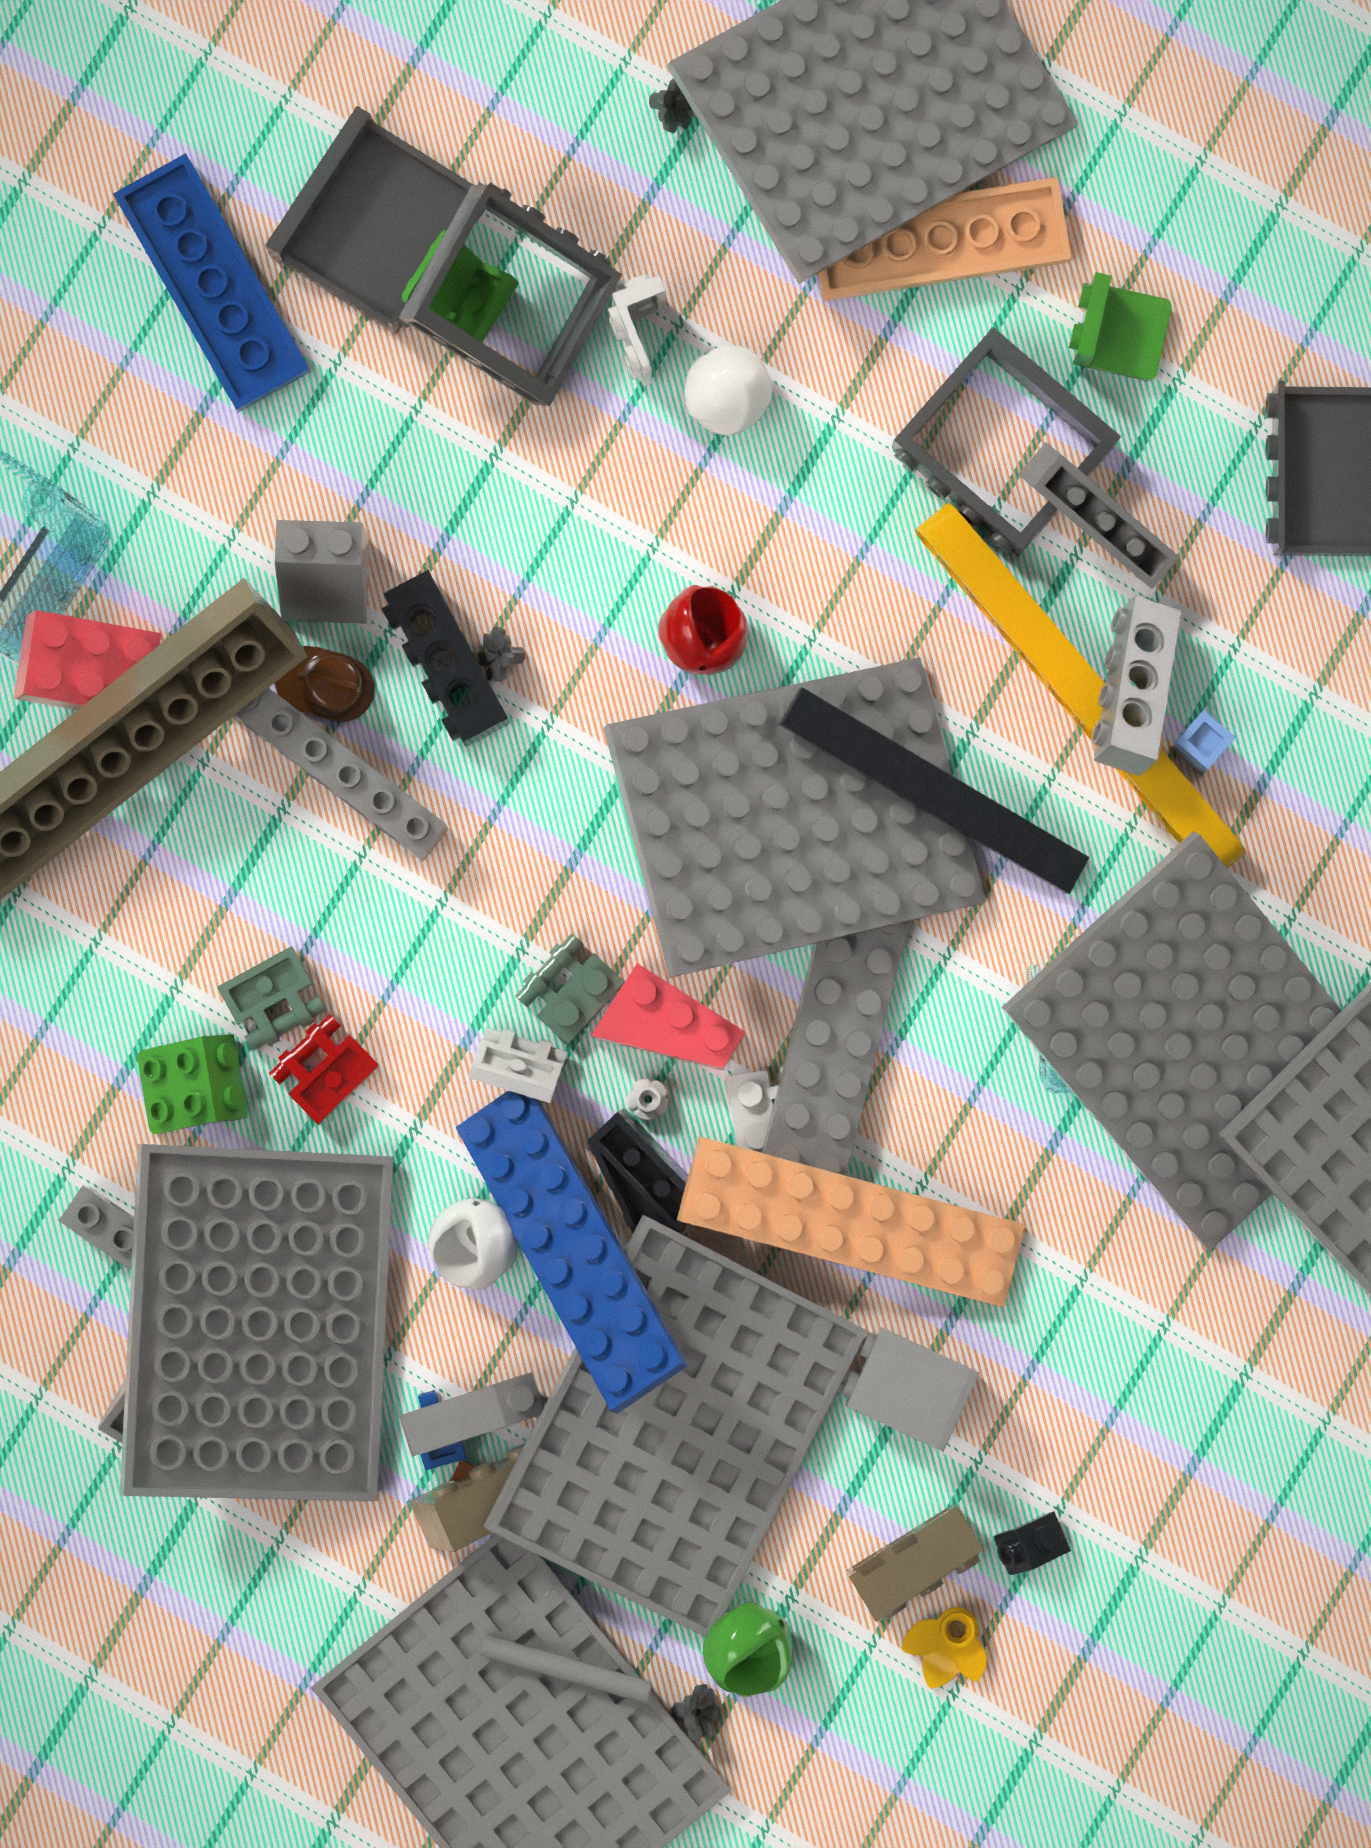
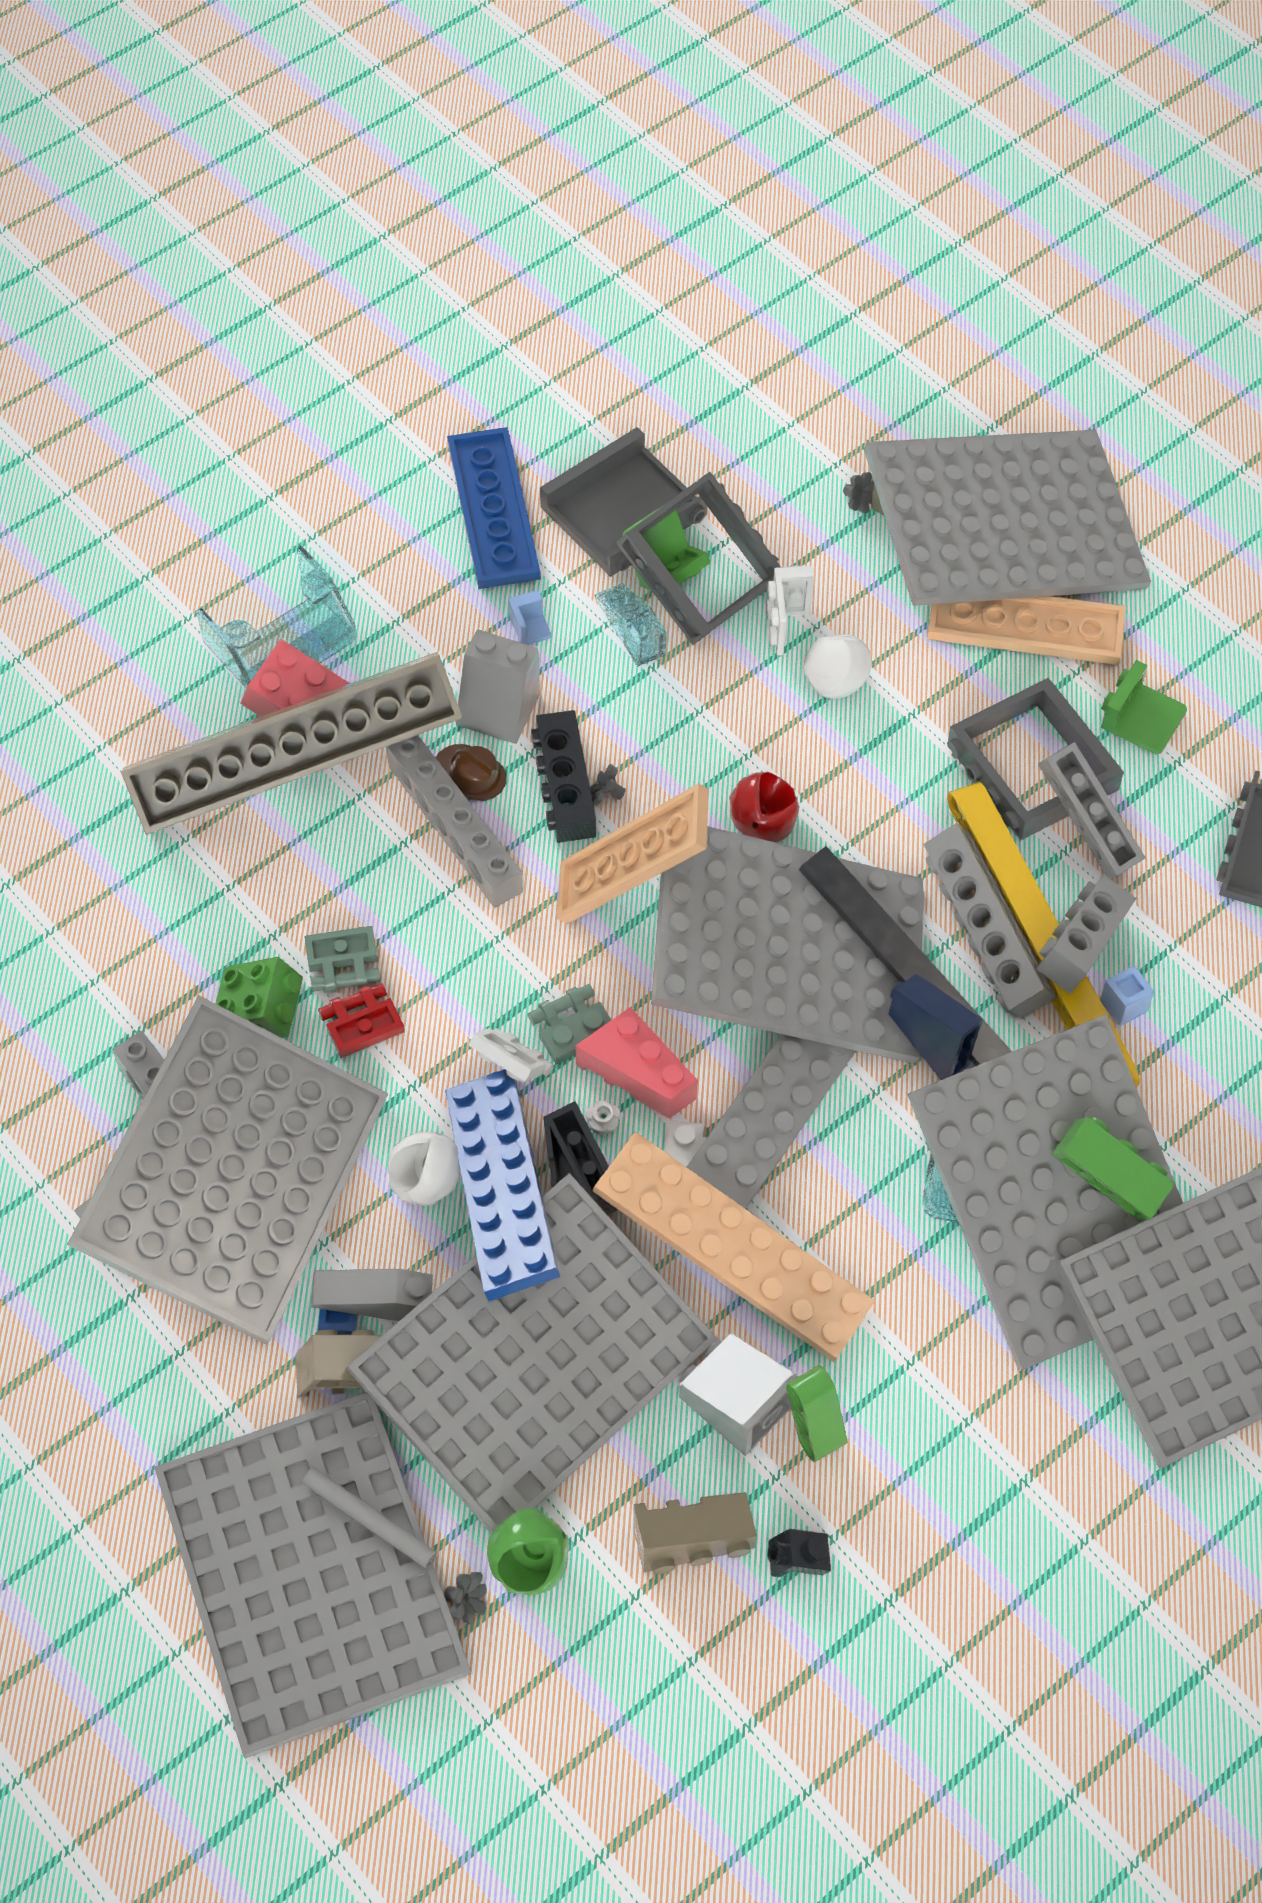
camera: 20 degrees right, 25 degrees down
(320, 441) = (528, 618): none -> light blue panel
(449, 404) = (633, 623): none -> clear light blue slope
(580, 779) = (633, 854): none -> light nougat plate
(944, 1653) = (694, 1621): yellow plate -> none
(993, 867) = (935, 1025): none -> dark blue slope
(1007, 1396) = (816, 1413): none -> bright green beam
(1013, 672) = (1032, 986): none -> light grey brick
(1255, 1012) = (1114, 1168): none -> bright green brick

